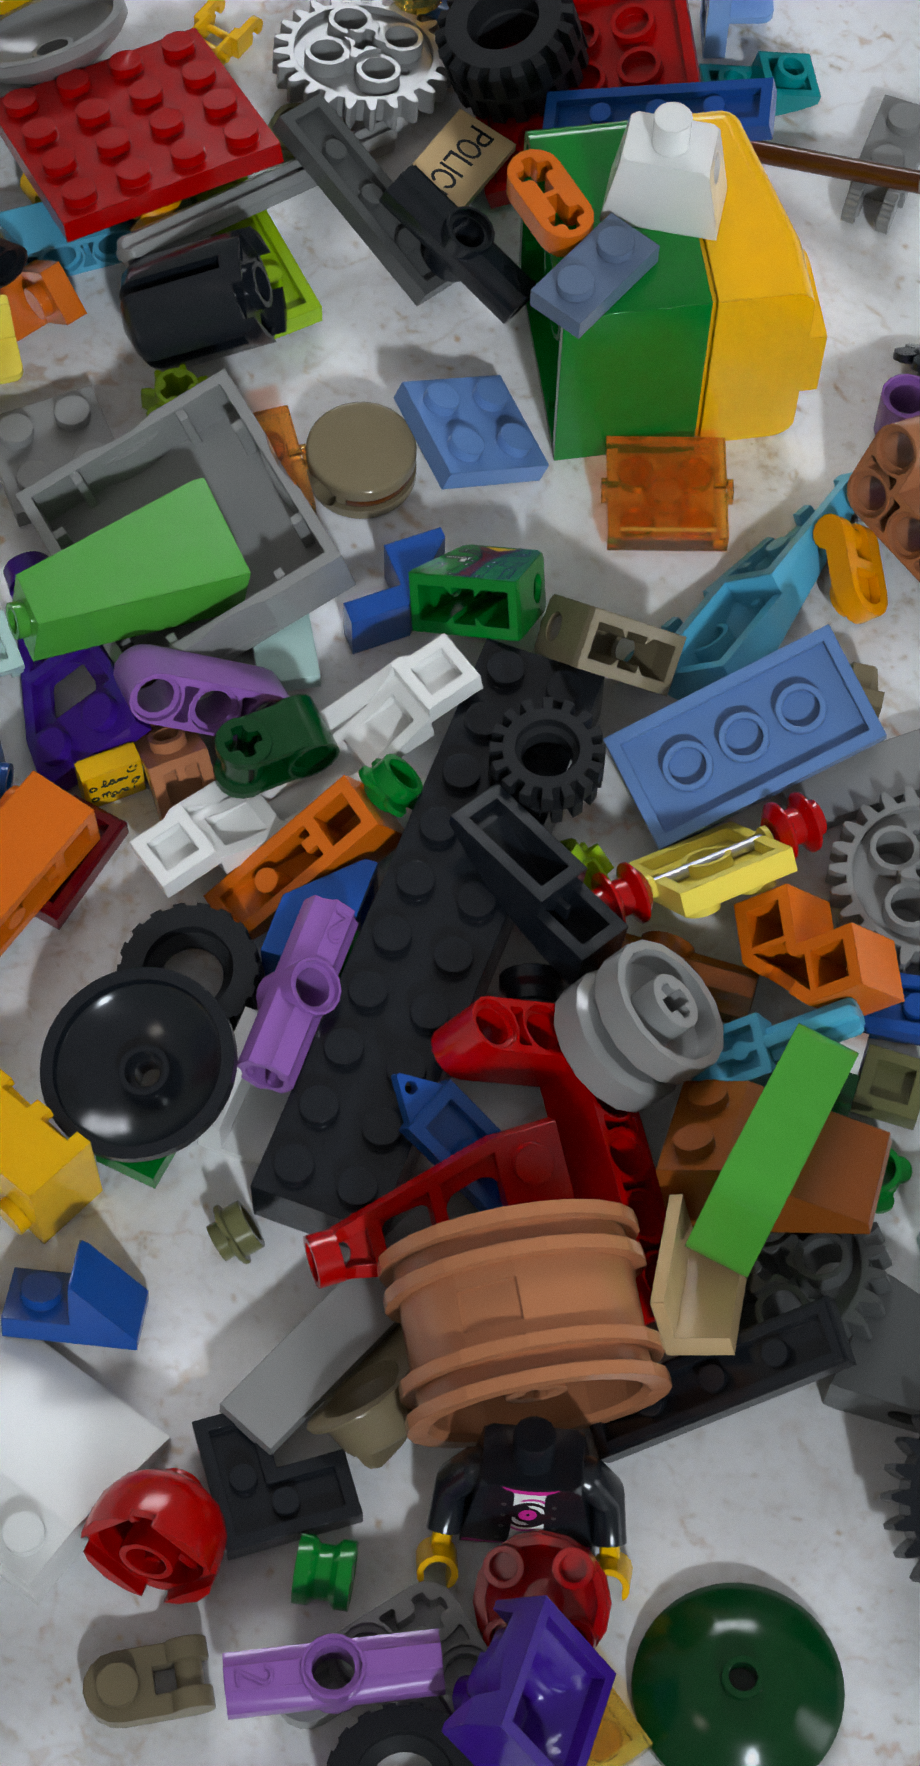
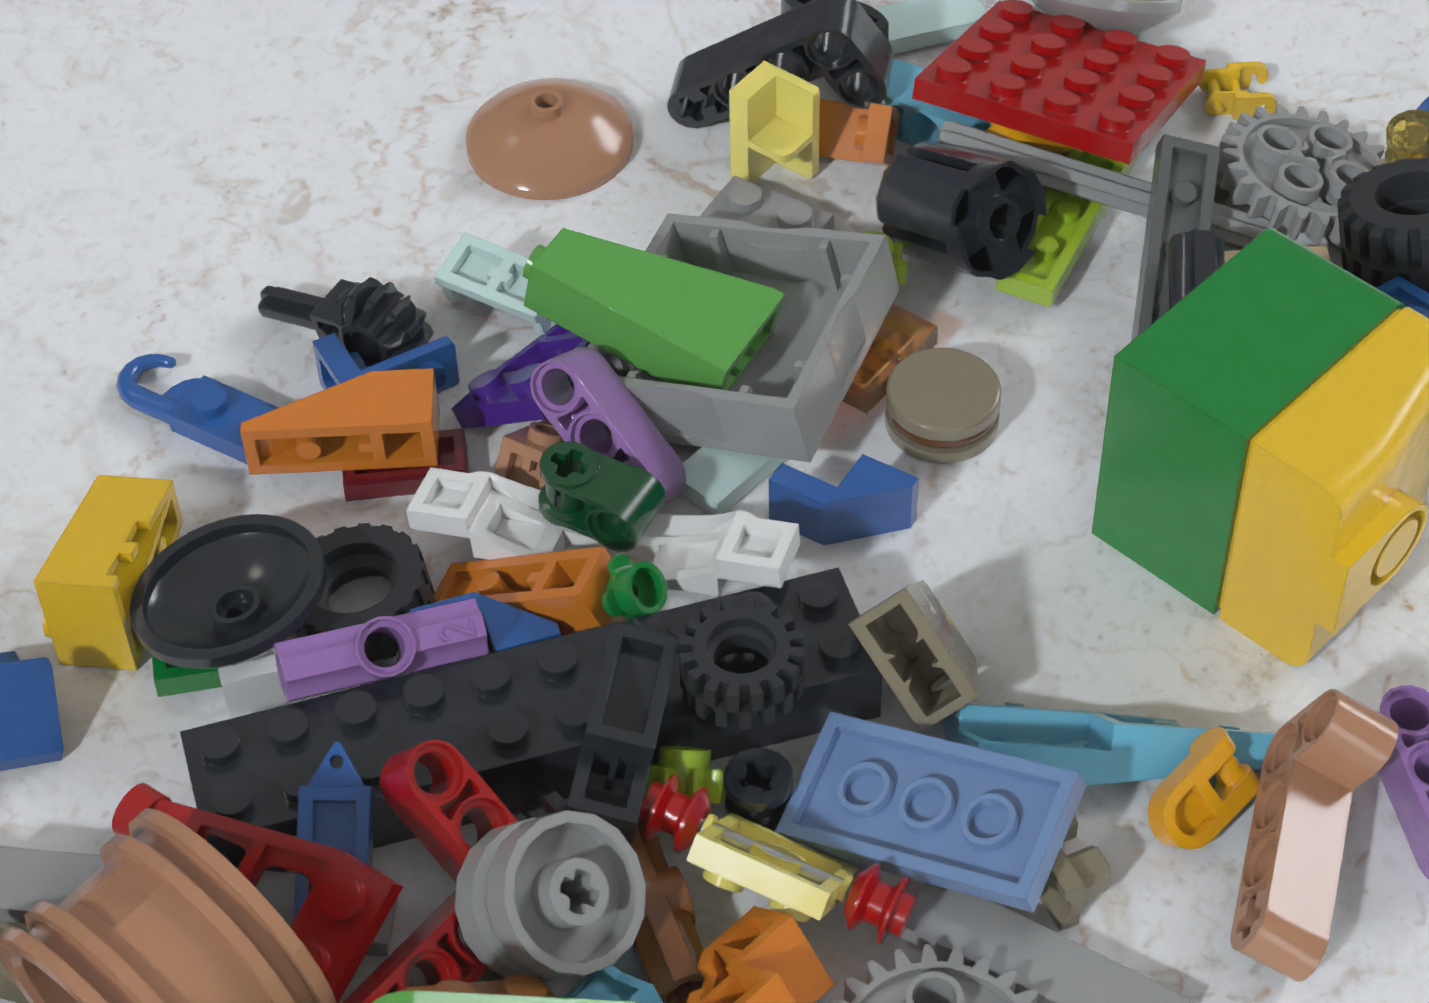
camera: 55 degrees right, 15 degrees down
(110, 775) = (485, 427): yellow tile -> none
(235, 1232) = (156, 764): olive plate -> none
(470, 431) = (1039, 451): medium blue plate -> none
(495, 596) = (886, 540): green torso -> none
(539, 208) = (1198, 270): orange beam -> none
(594, 275) = (1174, 343): sand blue plate -> none
(617, 814) = (753, 768): none -> black wheel
(666, 493) = (1132, 617): clear orange plate -> none
(668, 174) = (1313, 313): white torso -> none

